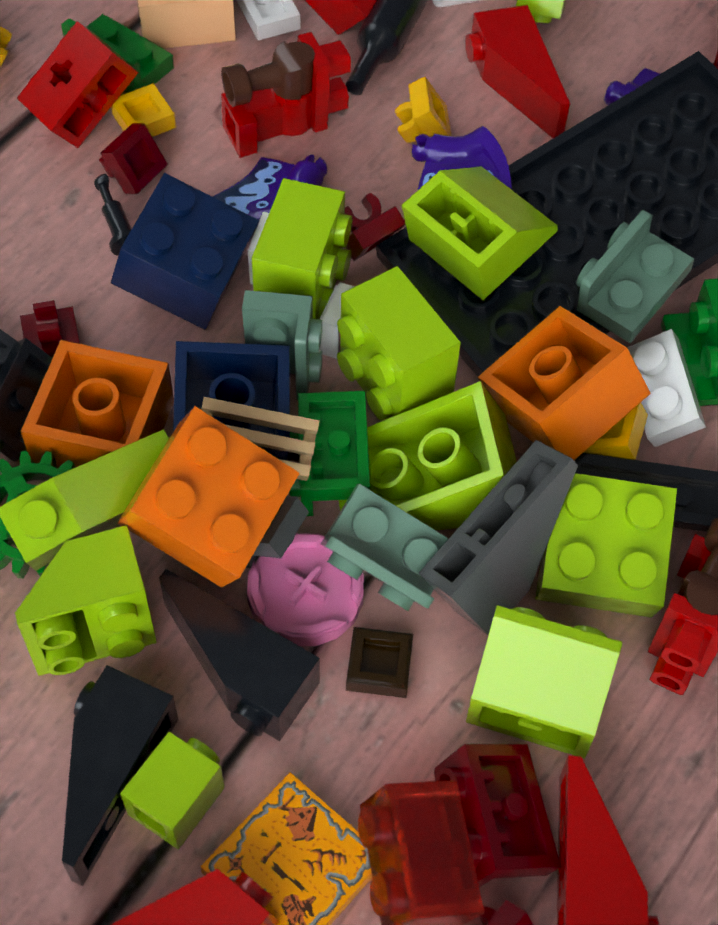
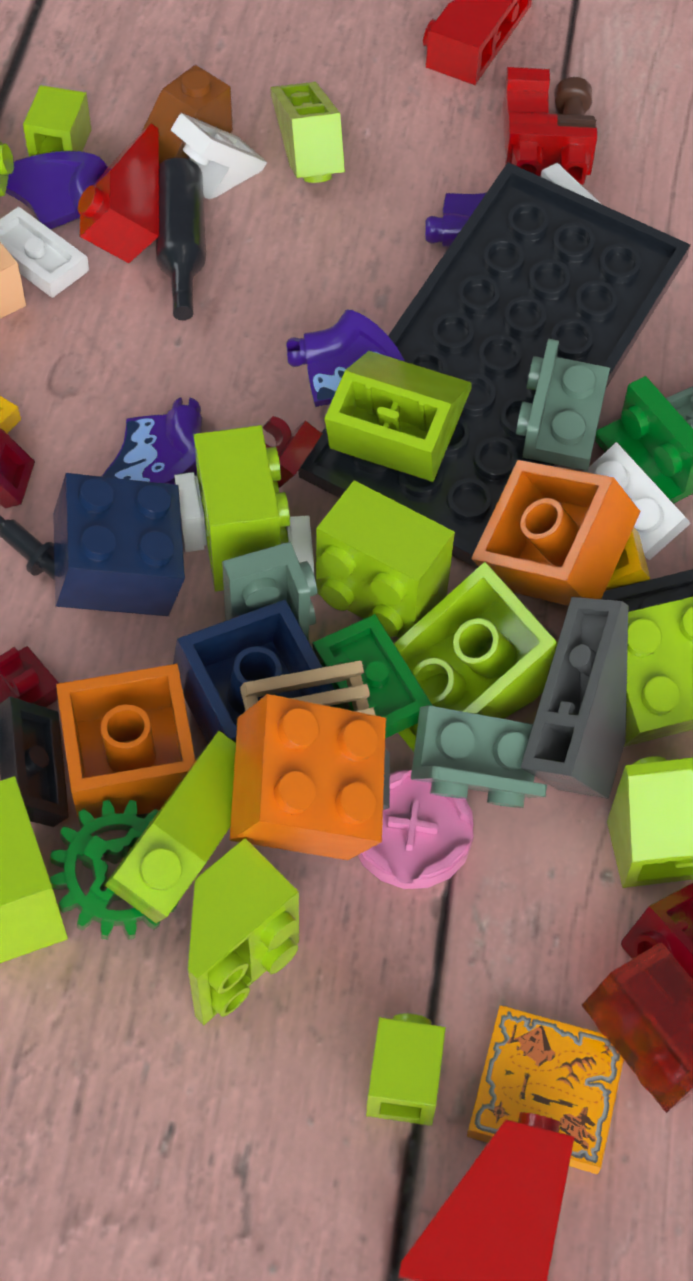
camera: 25 degrees left, 0 degrees up
(112, 737) = (325, 1064): black slope -> none
(250, 666) = (403, 922): black slope -> none
(284, 94) = (123, 346): red hips -> none
(379, 662) = (519, 867): dark brown tile -> none
(424, 112) = (268, 314): yellow tile -> none
(518, 65) = (331, 234): red slope -> none

